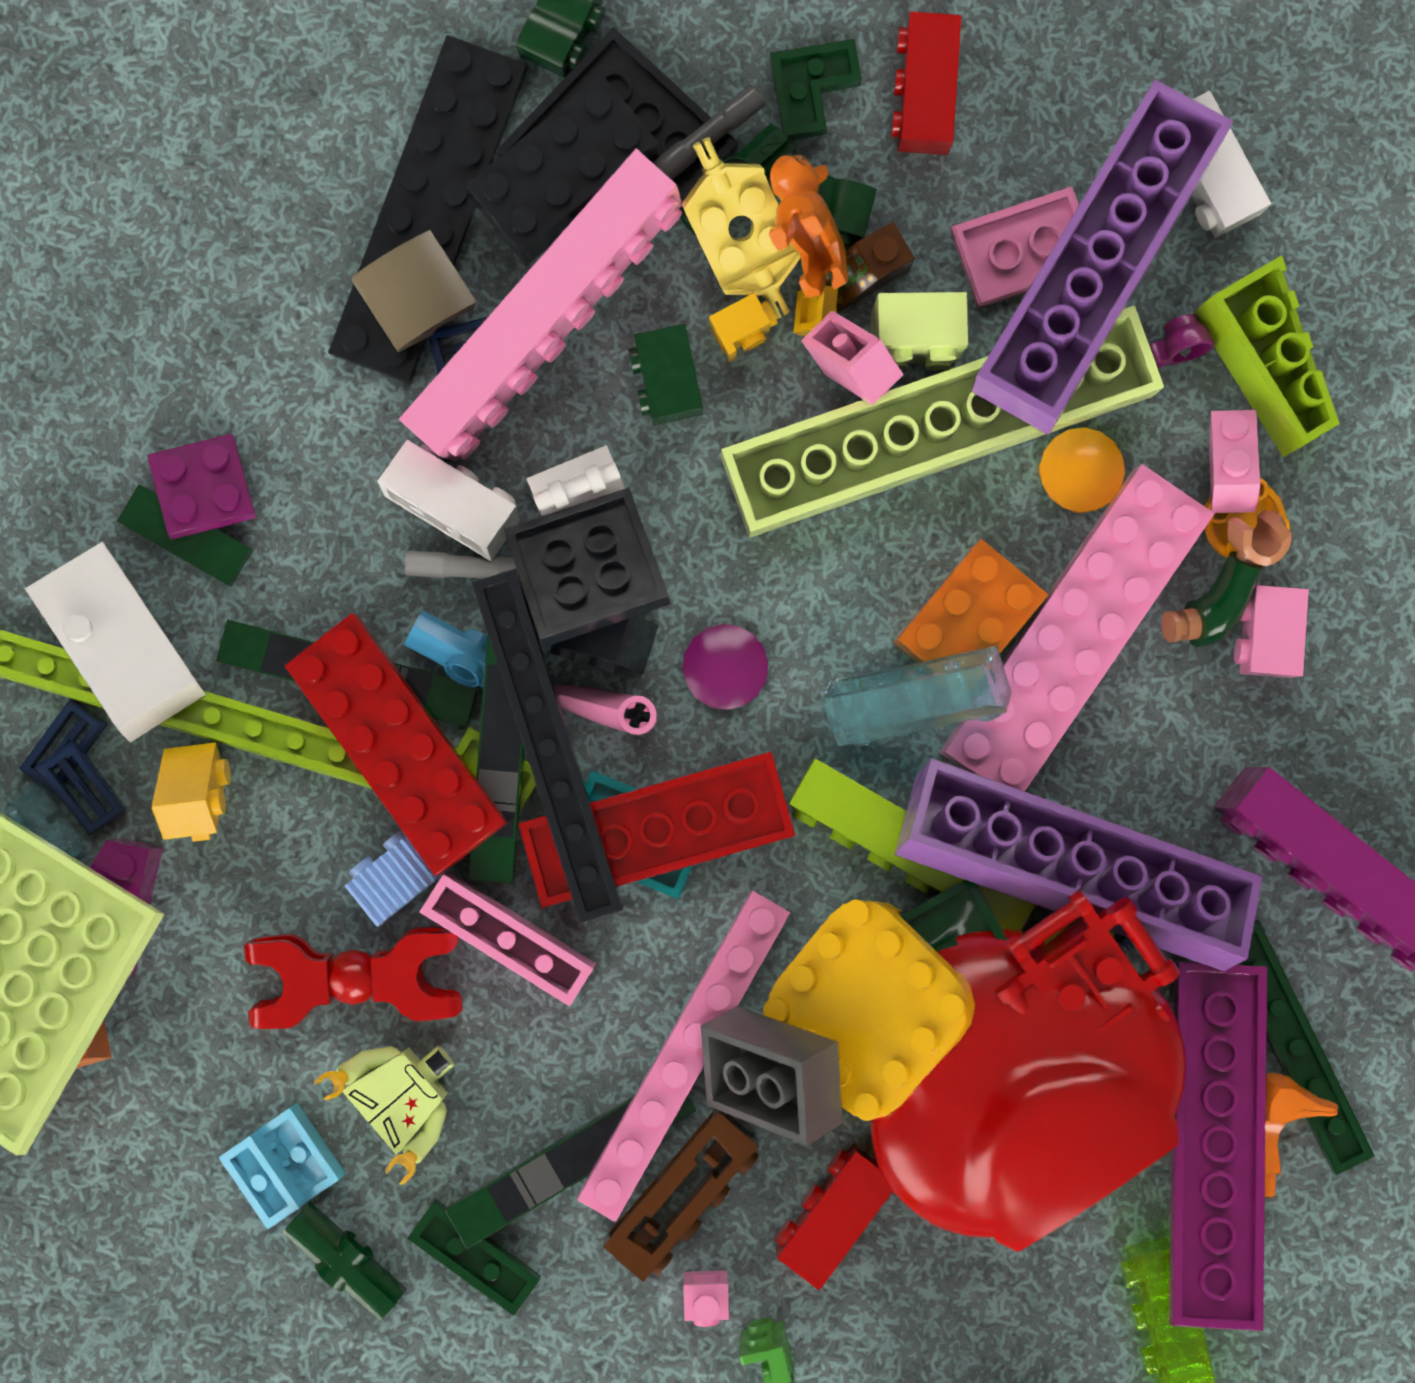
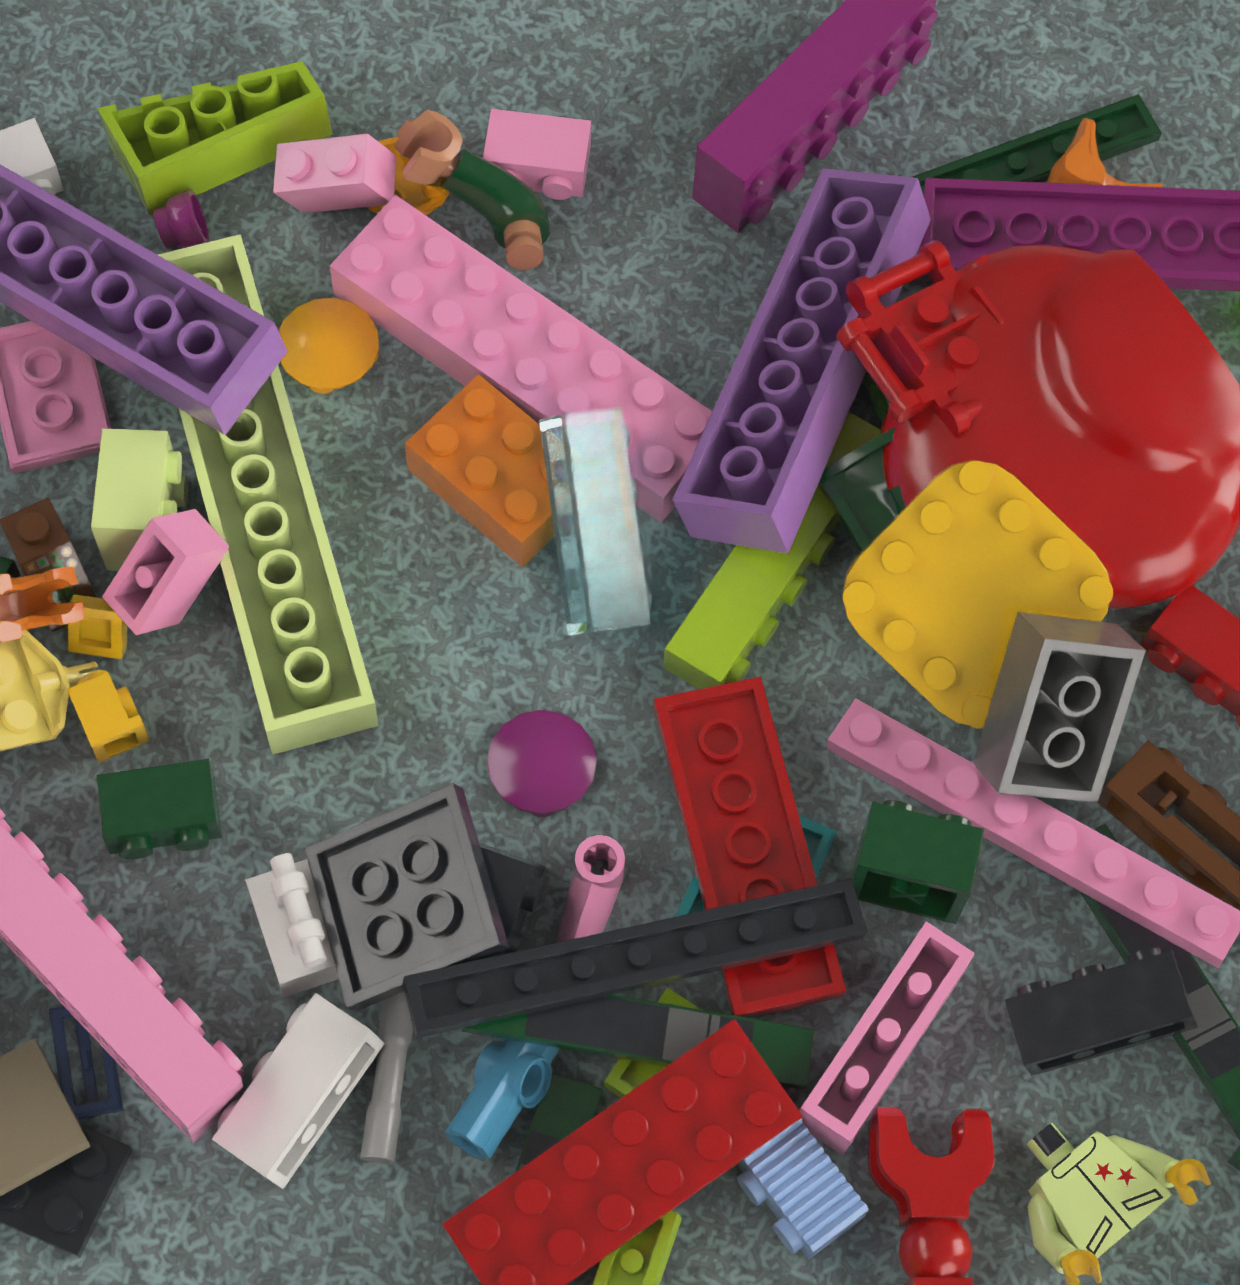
camera: 85 degrees left, 20 degrees down
(535, 1104) = (1100, 1011): none -> black brick
(645, 960) = (916, 861): none -> dark green brick

